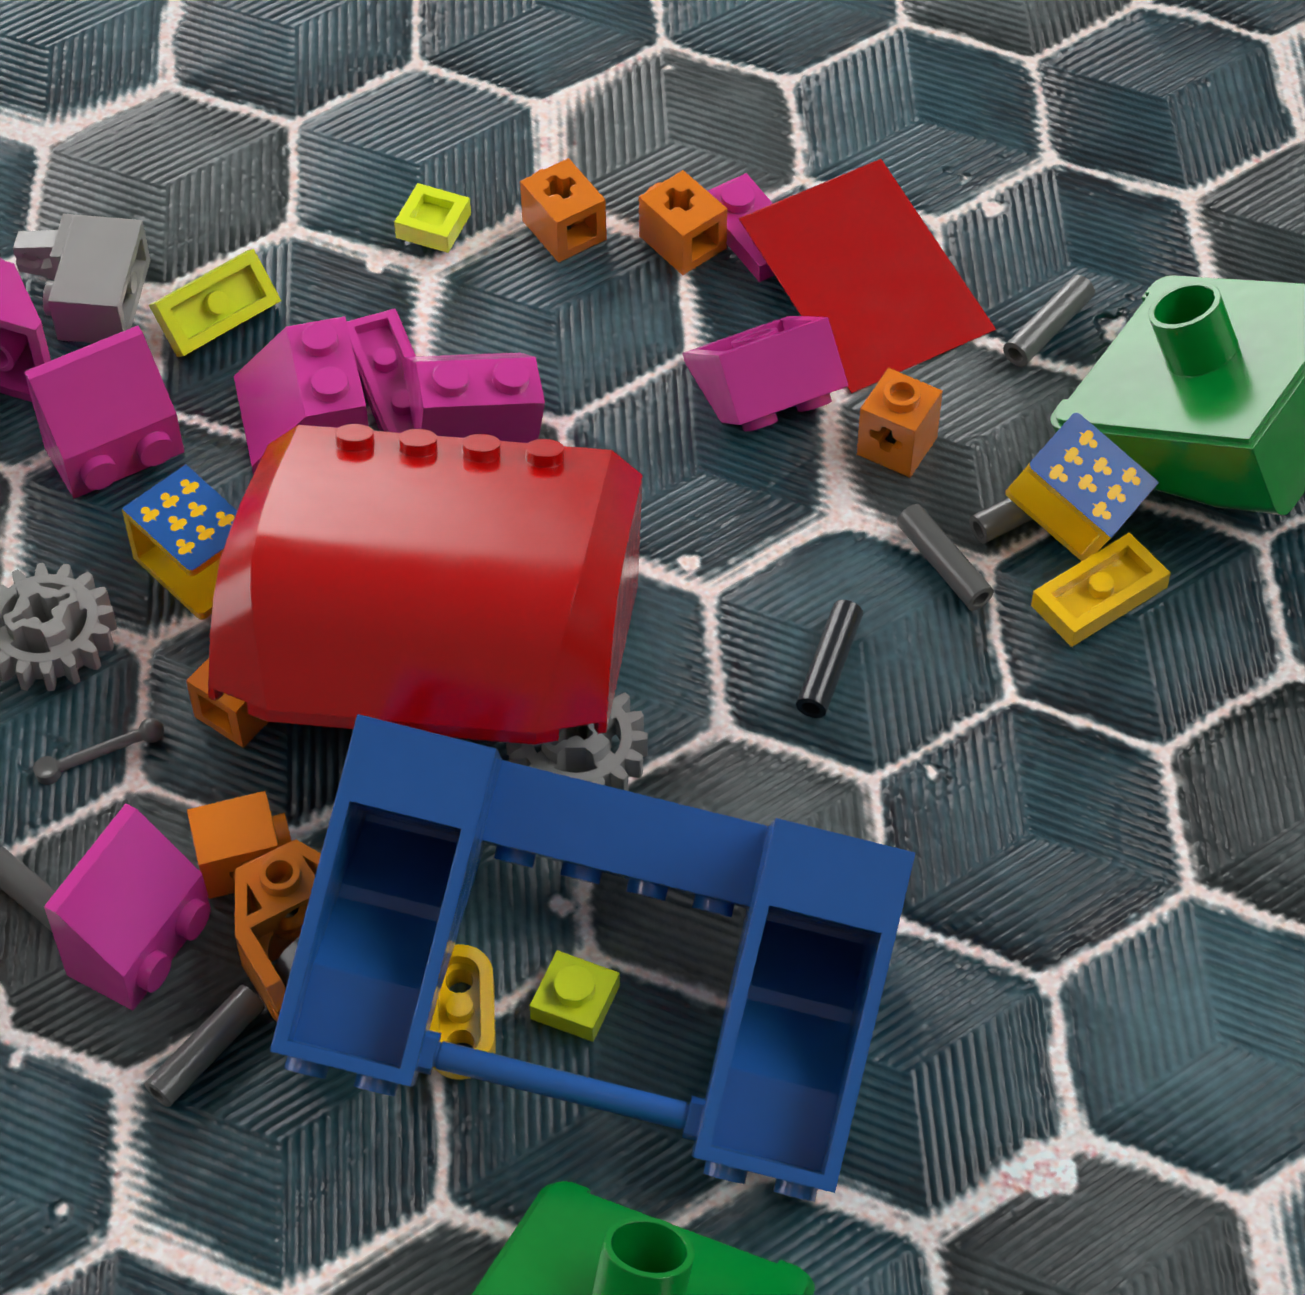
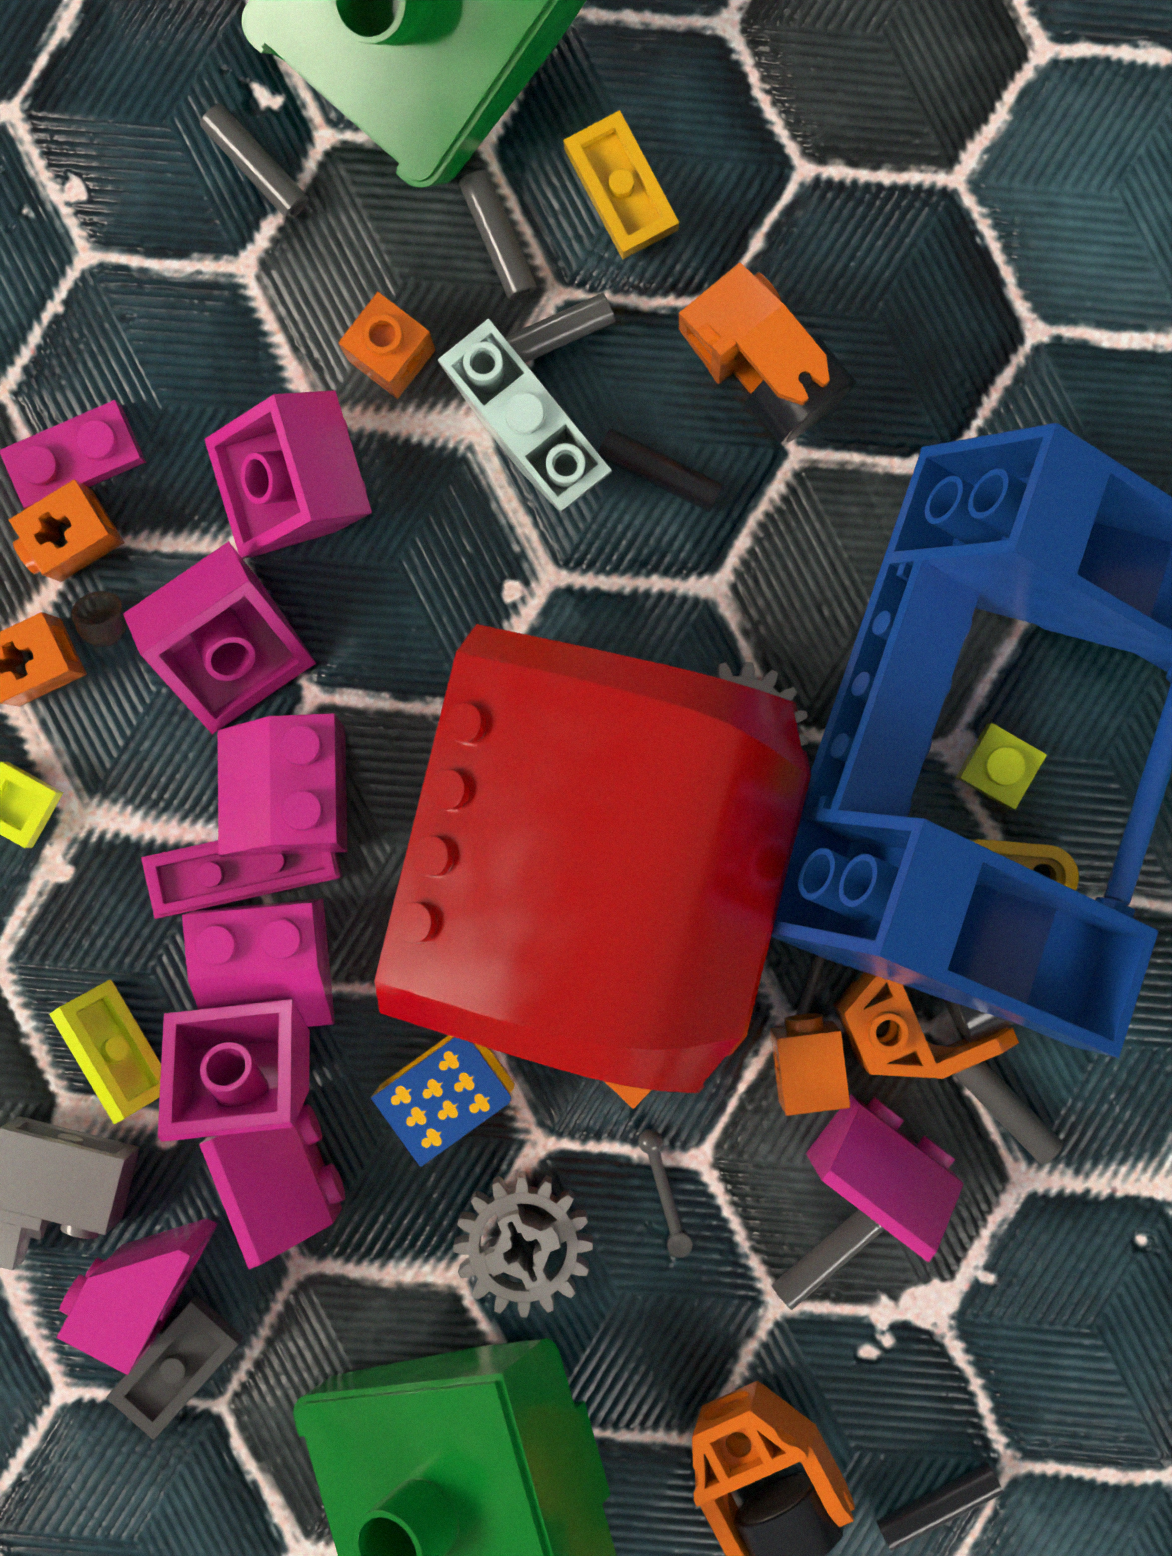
camera: 80 degrees left, 35 degrees up
(208, 371) = (232, 1070): none -> dark pink slope
(603, 335) = (217, 638): none -> dark pink slope
(607, 254) = (104, 614): none -> clear smoke hinge
(855, 523) = (523, 417): none -> light aqua slope
(871, 268) = (163, 344): red sticker -> none
(954, 703) = (751, 333): none -> orange piece
(1081, 487) = (518, 173): piece -> none

